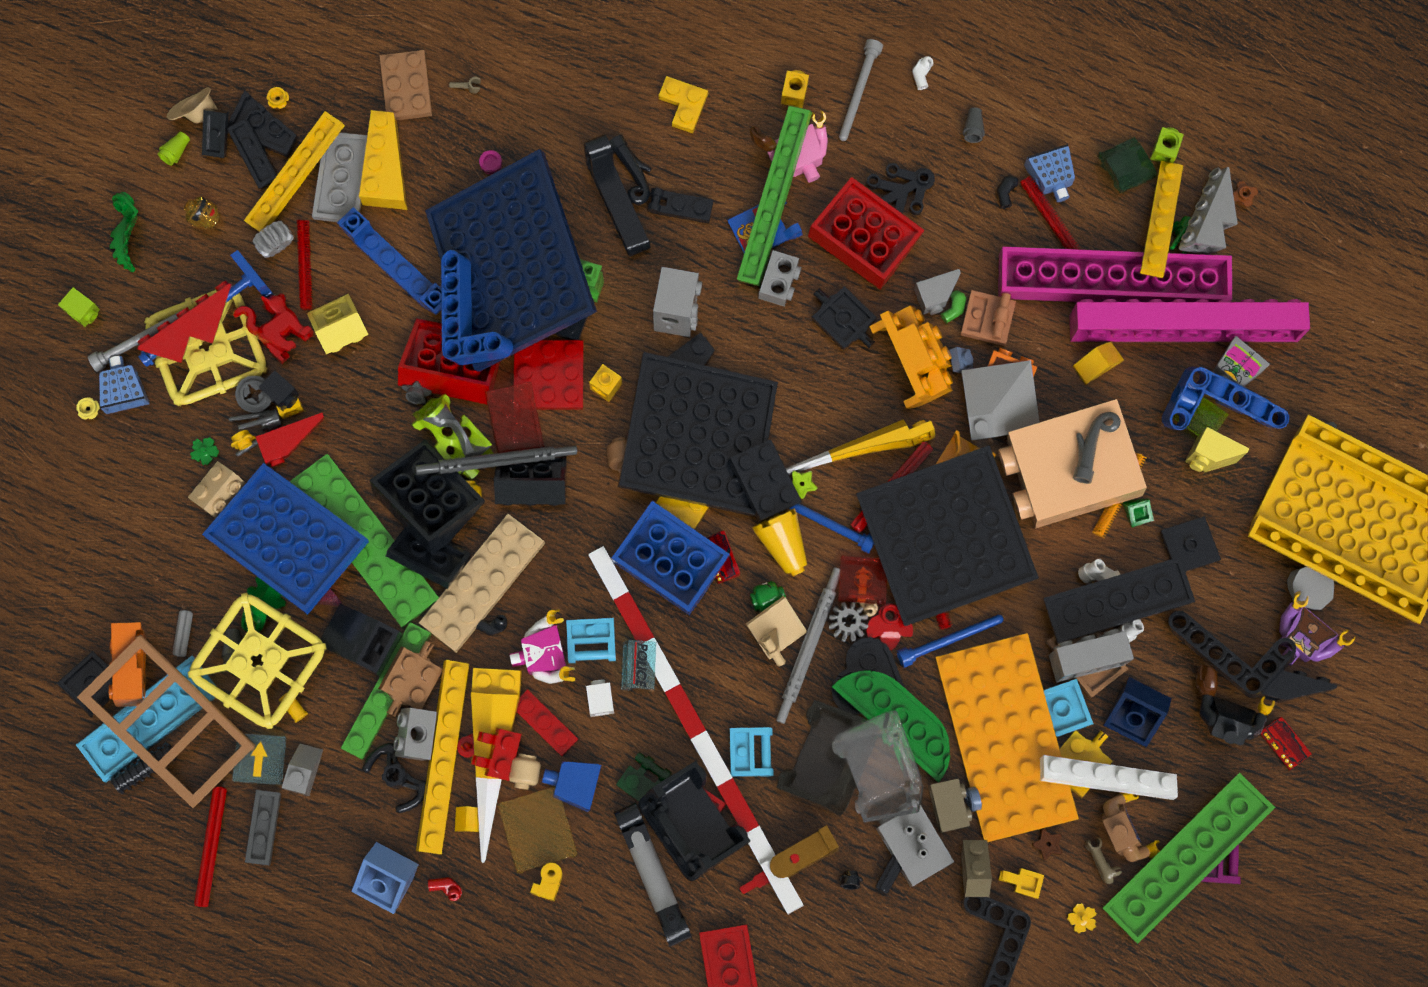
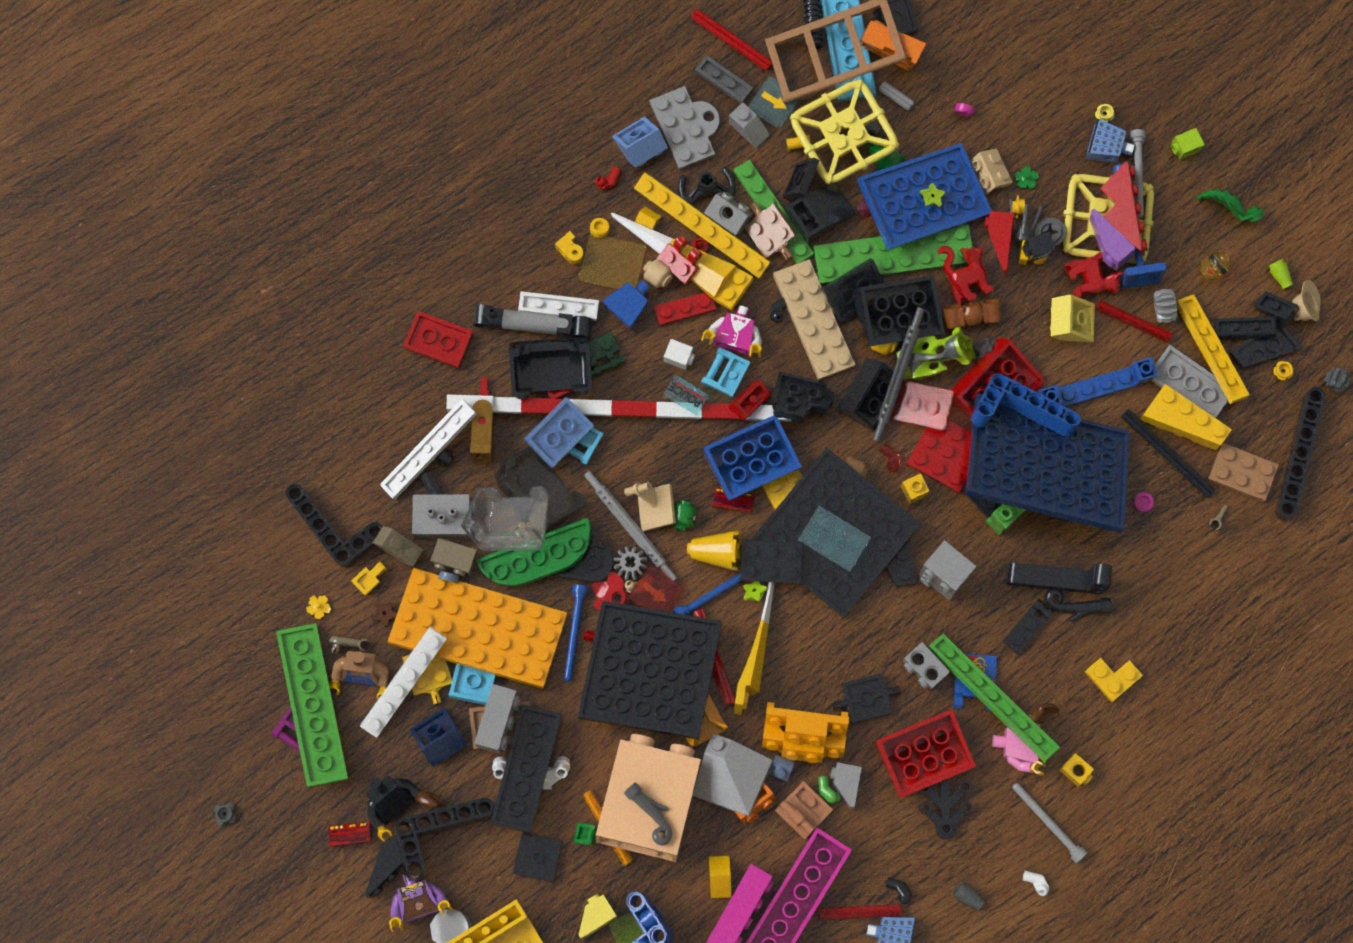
camera: 125 degrees right, 0 degrees up
(161, 552) = (964, 109): none -> dark pink tile
(235, 322) = (1113, 245): none -> medium lavender slope
(260, 41) = (1337, 379): none -> dark grey gear
(283, 533) = (929, 200): none -> lime plate
(335, 677) = (800, 179): none -> black plate
(339, 840) = (685, 127): none -> light grey plate
(349, 48) = (1294, 460): none -> black beam
(350, 450) = (967, 276): none -> red animal
(387, 424) = (972, 313): none -> dark orange piece
(426, 164) = (1169, 454): none -> black axle
(506, 865) = (599, 227): none -> yellow tile
(577, 547) = (798, 396): none -> black plate
(584, 424) = (893, 458): none -> clear red arm
(606, 598) = (750, 399): none -> red slope
(618, 857) = (558, 304): none -> white plate
(707, 427) = (834, 538): none -> clear light blue plate
(759, 770) = (558, 432): none -> medium blue plate
(855, 898) = (428, 449): none -> white plate
(1352, 882) = (219, 810): none -> dark grey plate

